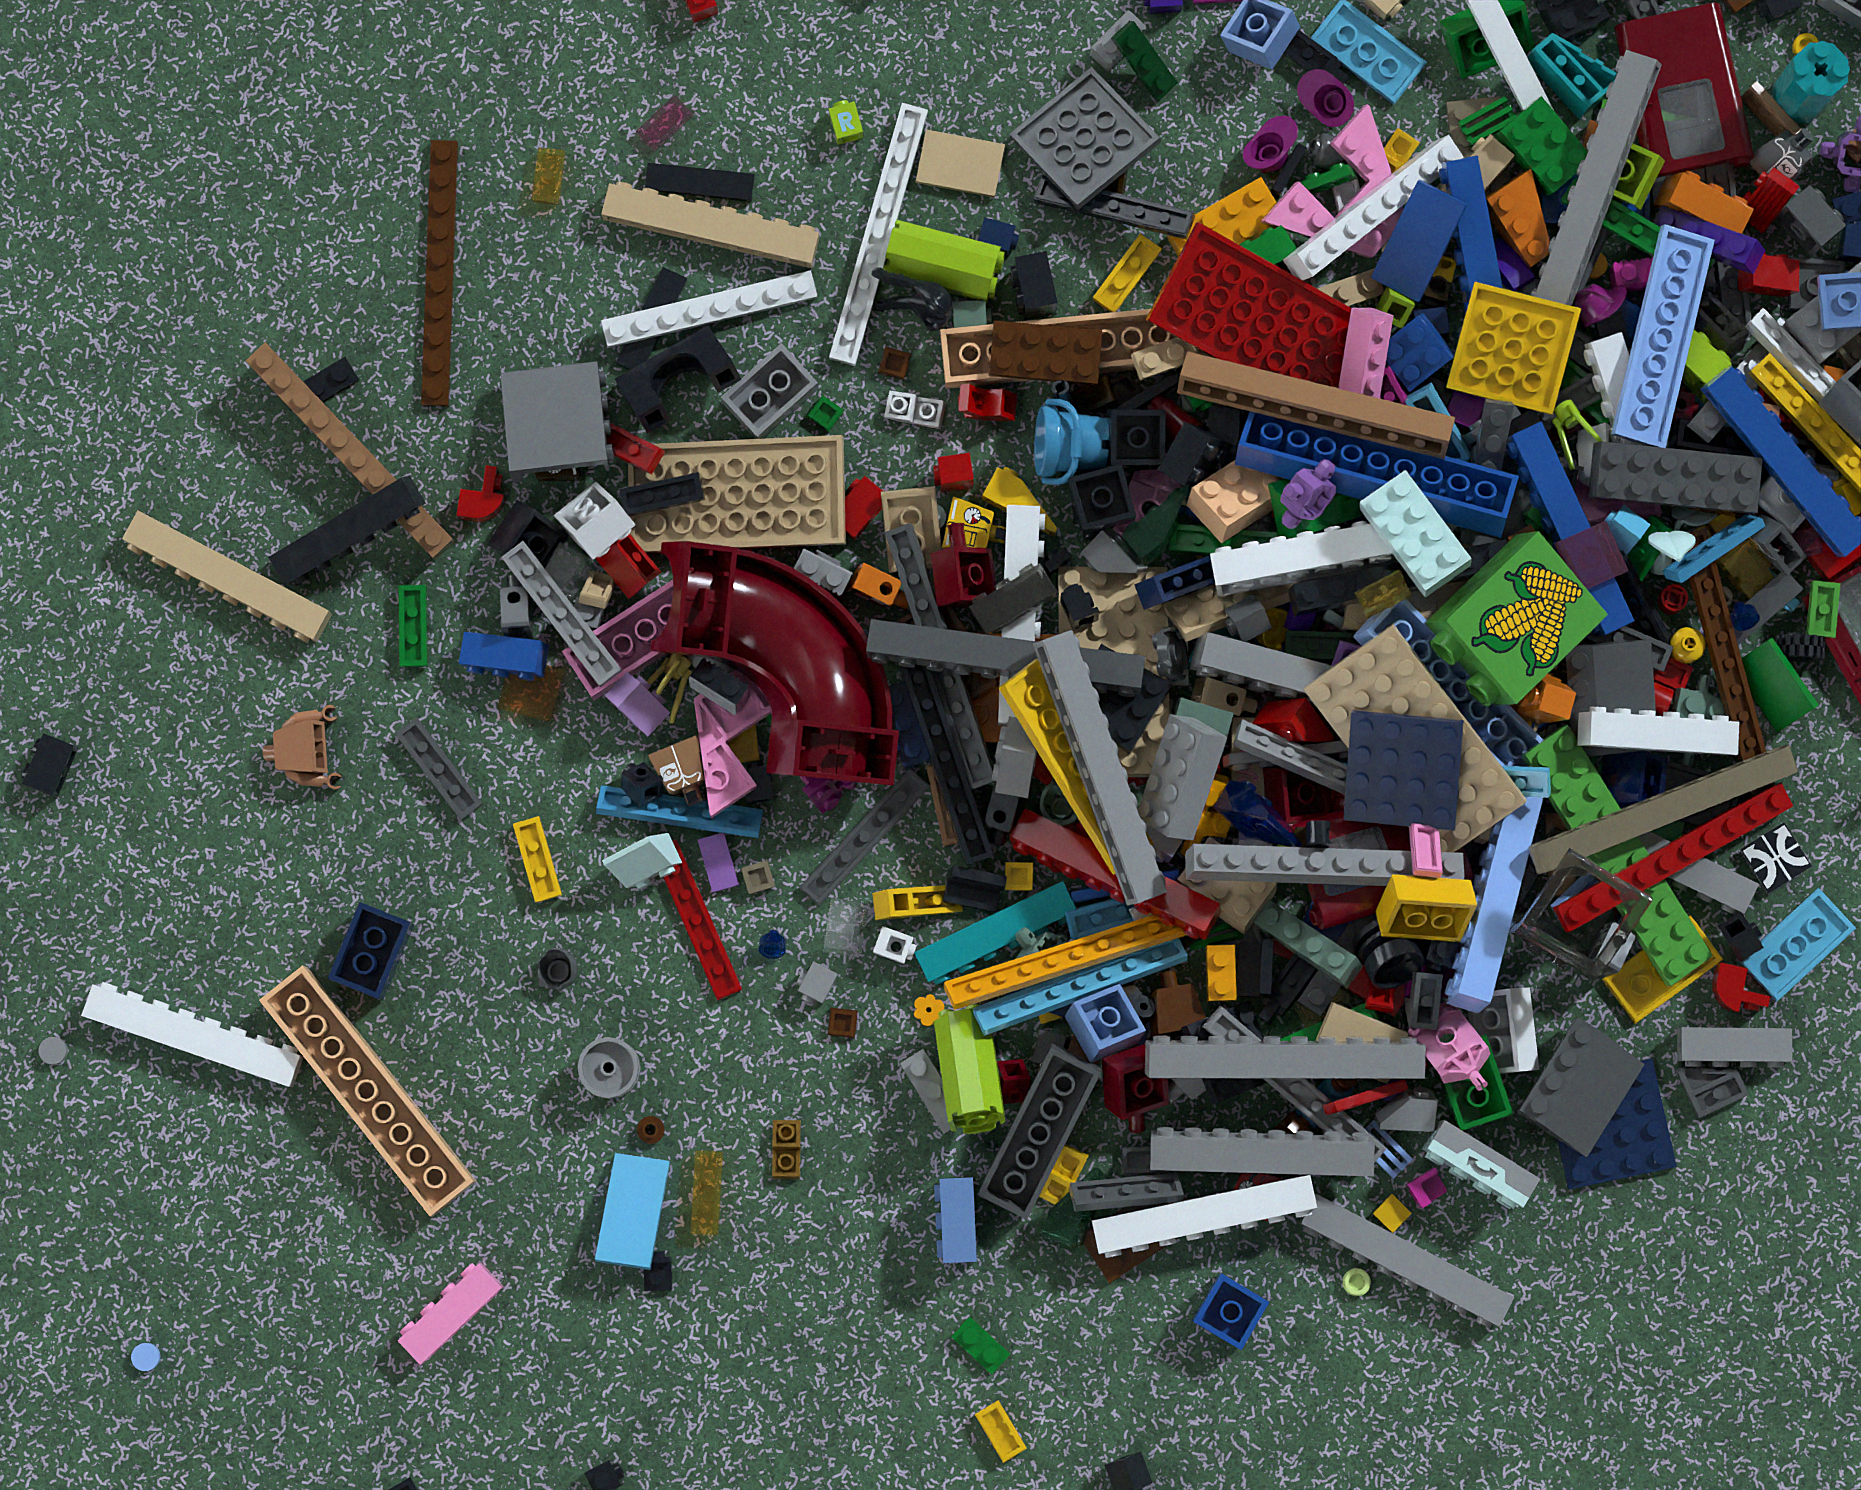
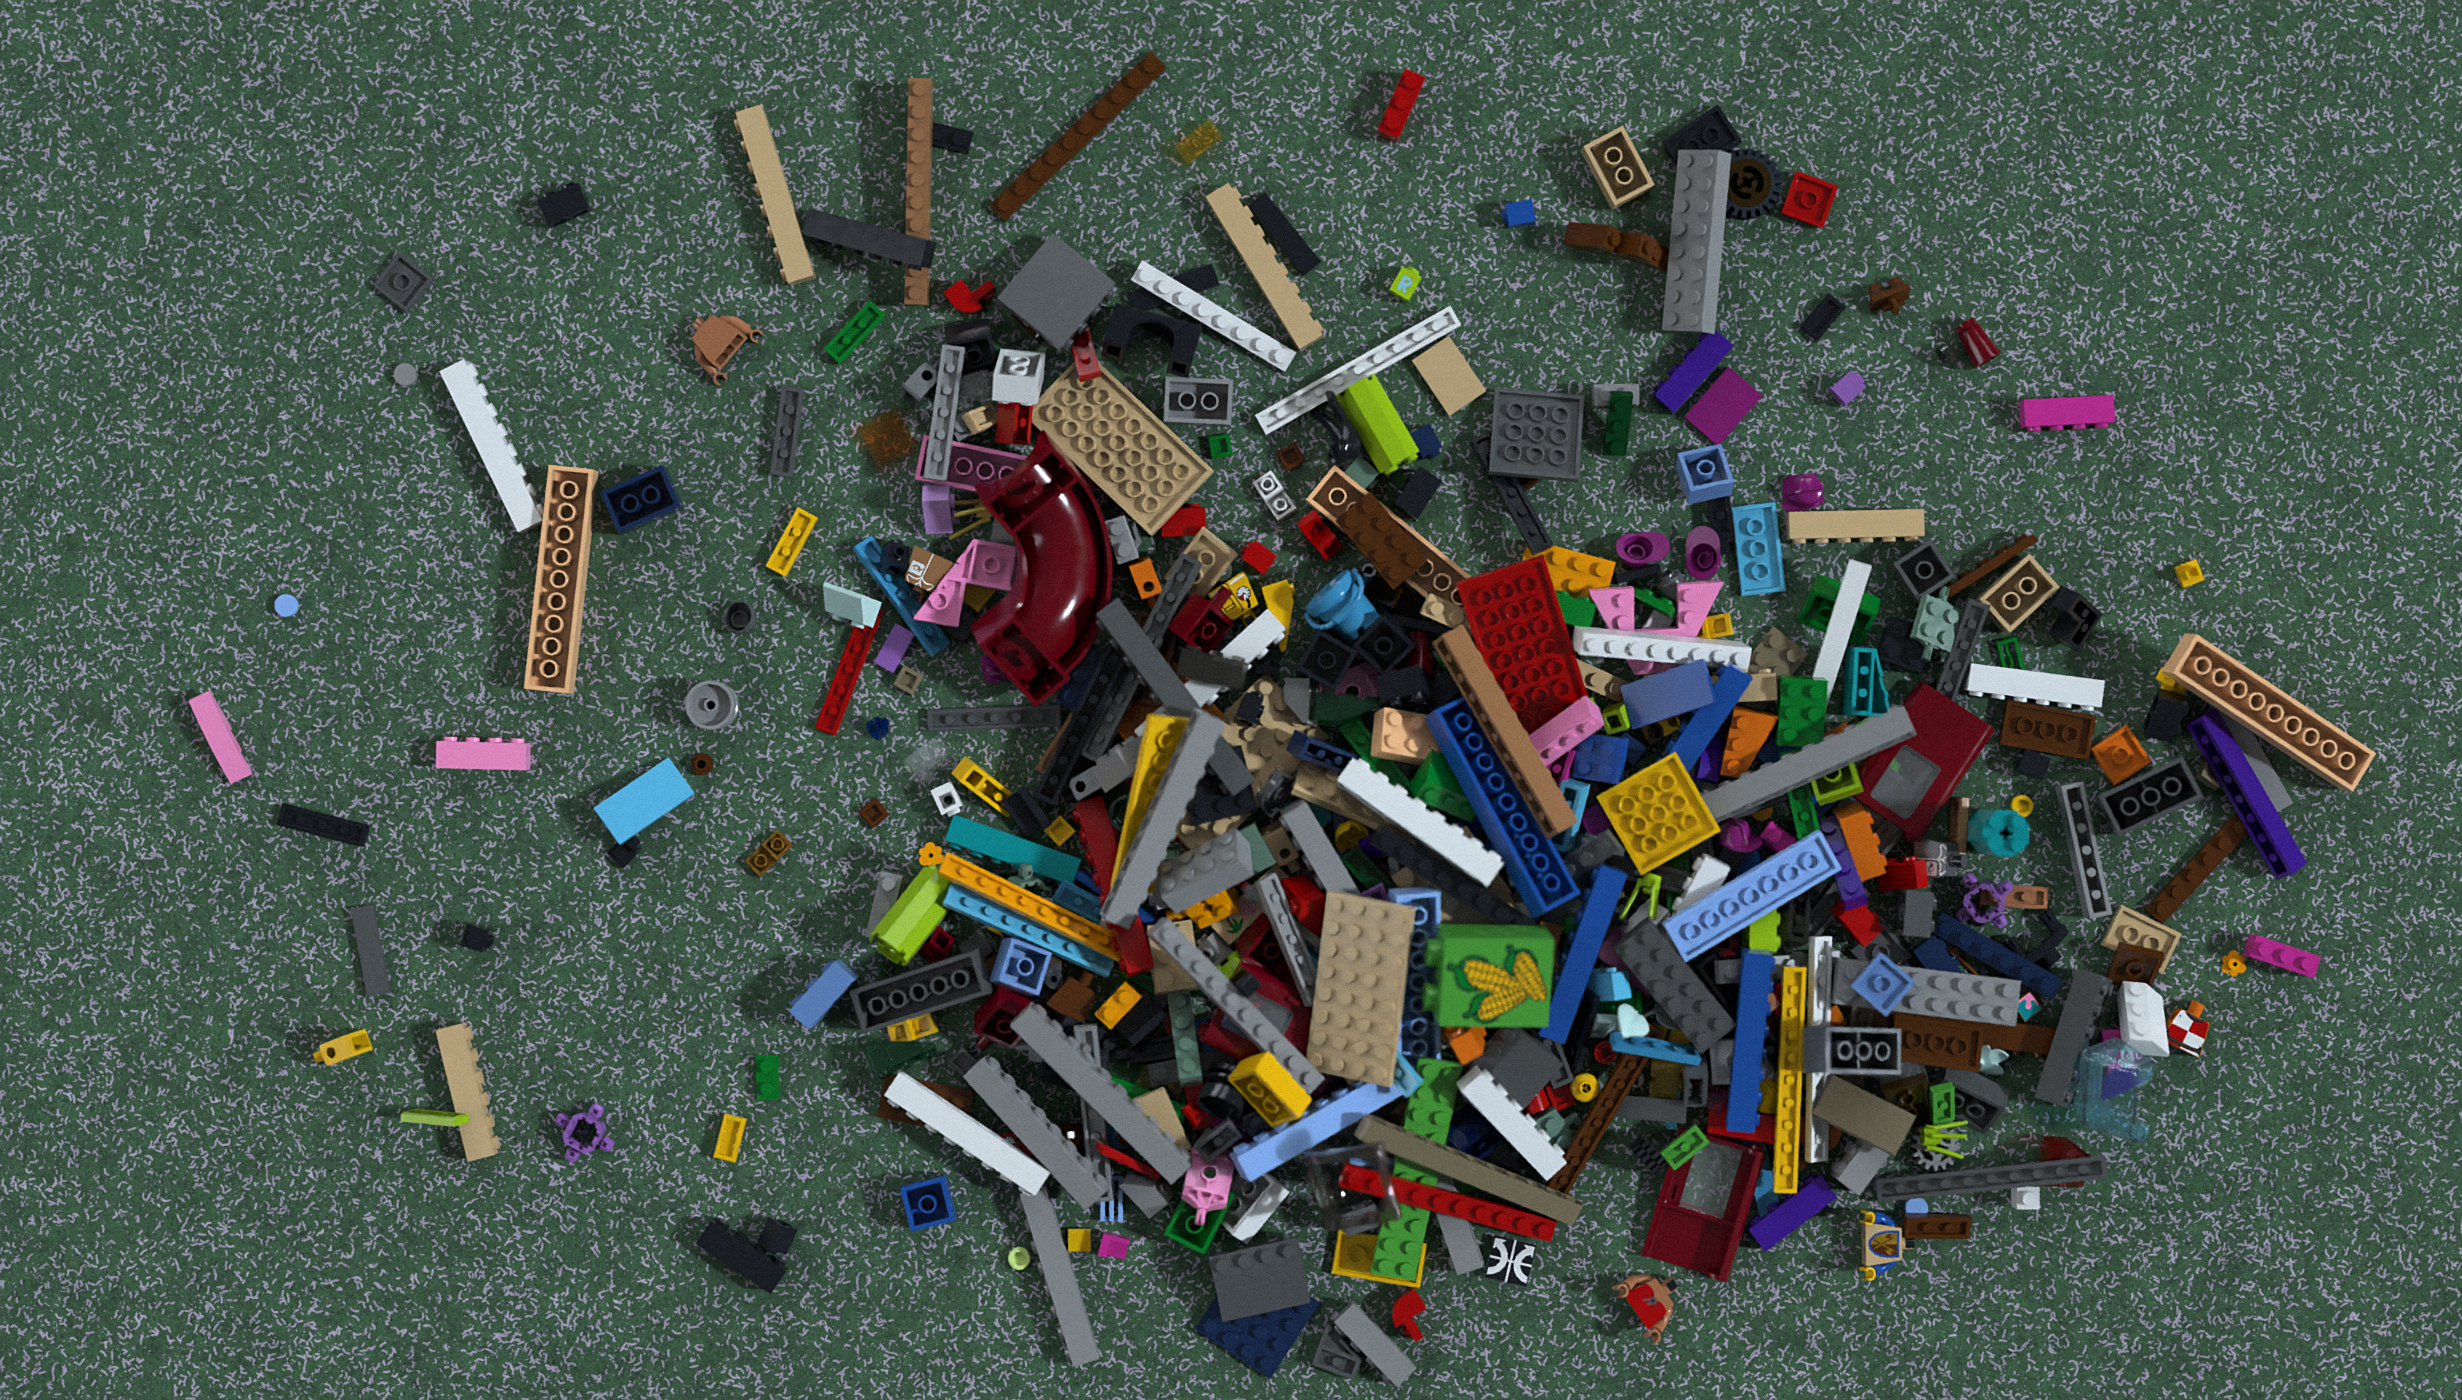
camera: 50 degrees right, 5 degrees up
(503, 655) = (888, 403): blue brick -> none
(662, 494) = (1074, 400): black plate -> none
(664, 123) = (1298, 178): clear pink tile -> none
(706, 1192) = (698, 832): clear yellow plate -> none
(719, 686) = (993, 547): black brick -> none
(816, 983) = (880, 775): light grey brick -> none
(1126, 1192) = (935, 1075): dark grey plate -> none
(1127, 274) = (1480, 540): yellow plate -> none
(1247, 619) = (1338, 816): dark grey brick -> none
(1254, 815) = (1227, 935): clear blue slope -> none
(1308, 494) = (1445, 780): medium lavender piece -> none
(1383, 594) = (1428, 883): clear yellow hips -> none
(1403, 769) = (1337, 996): dark blue plate -> none
(1415, 533) = (1481, 868): light aqua brick -> none
(1425, 850) = (1303, 1056): bright pink tile -> none
(1480, 1164) = (1156, 1265): piece -> none
(1507, 109) = (1803, 667): green tile -> none
(1592, 555) = (1576, 982): clear pink tile -> none
(1650, 574) = (1604, 1025): none -> light aqua tile
(1741, 936) = (1442, 1286): black brick -> none
(1744, 616) = (1634, 1104): clear blue tile -> none
(1776, 685) = (1612, 1163): green tile -> none
(1798, 944) = (1471, 1322): medium azure tile -> none

